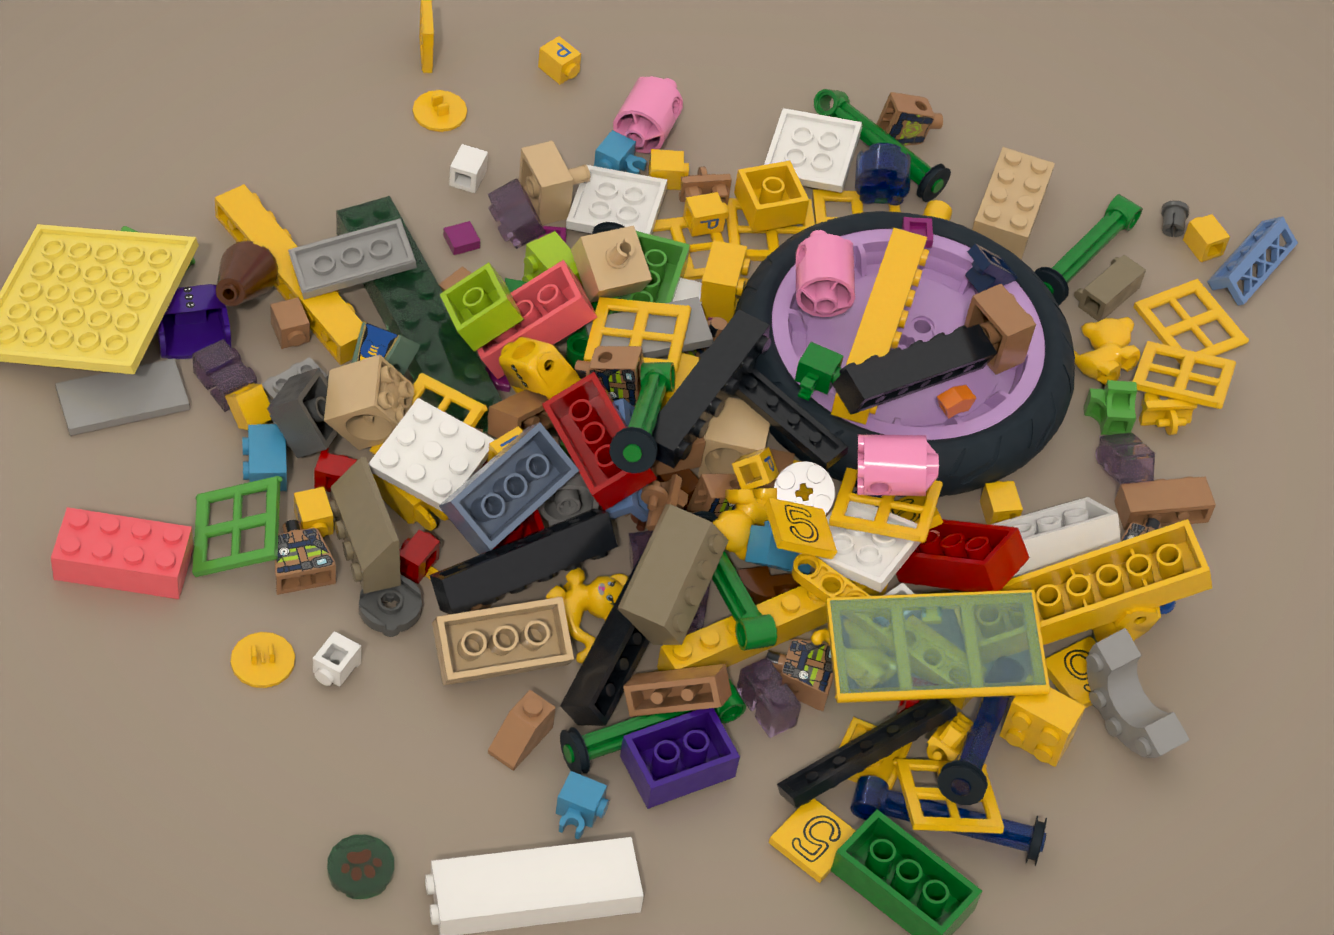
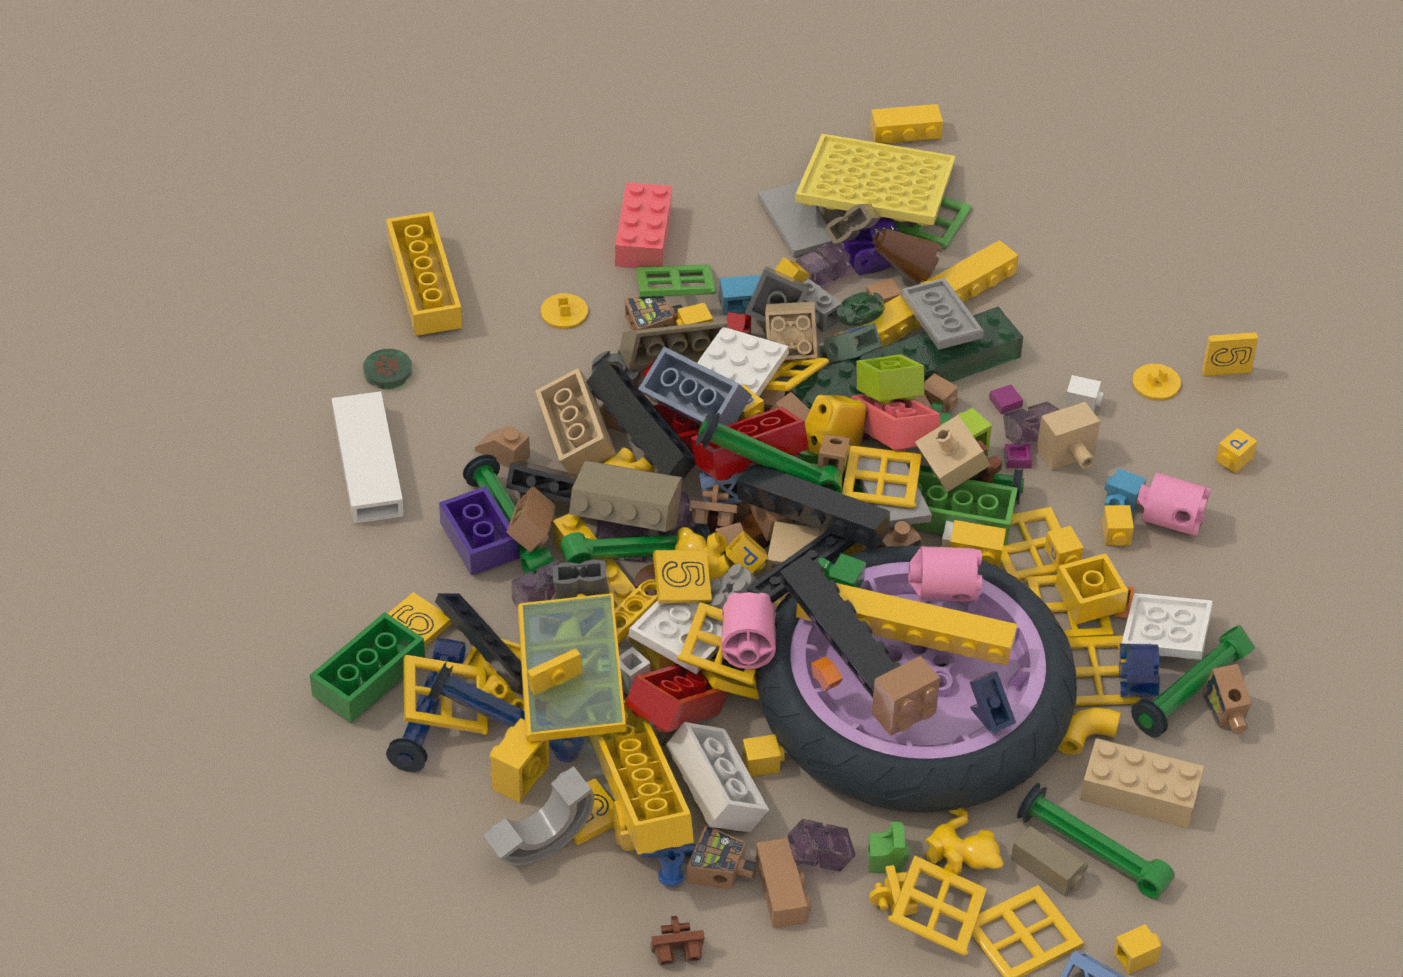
camera: 95 degrees right, 5 degrees down
(188, 319) = (856, 219): none -> dark tan brick
(190, 810) = (424, 273): none -> yellow brick
(327, 337) = (860, 309): none -> clear green tile
(336, 660) = (559, 341): white brick -> none
(581, 802) = (439, 480): dark azure brick -> none
(617, 198) = (1064, 492): white plate -> none
(704, 184) = (1098, 545): medium nougat hips -> none
(796, 634) = (585, 578): none -> dark grey brick
(919, 226) = (1032, 658): magenta tile -> none
(969, 650) = (555, 671): none -> yellow plate
(1175, 215) = (1160, 923): dark grey bush -> none
(1249, 595) = (690, 941): none -> copper hips

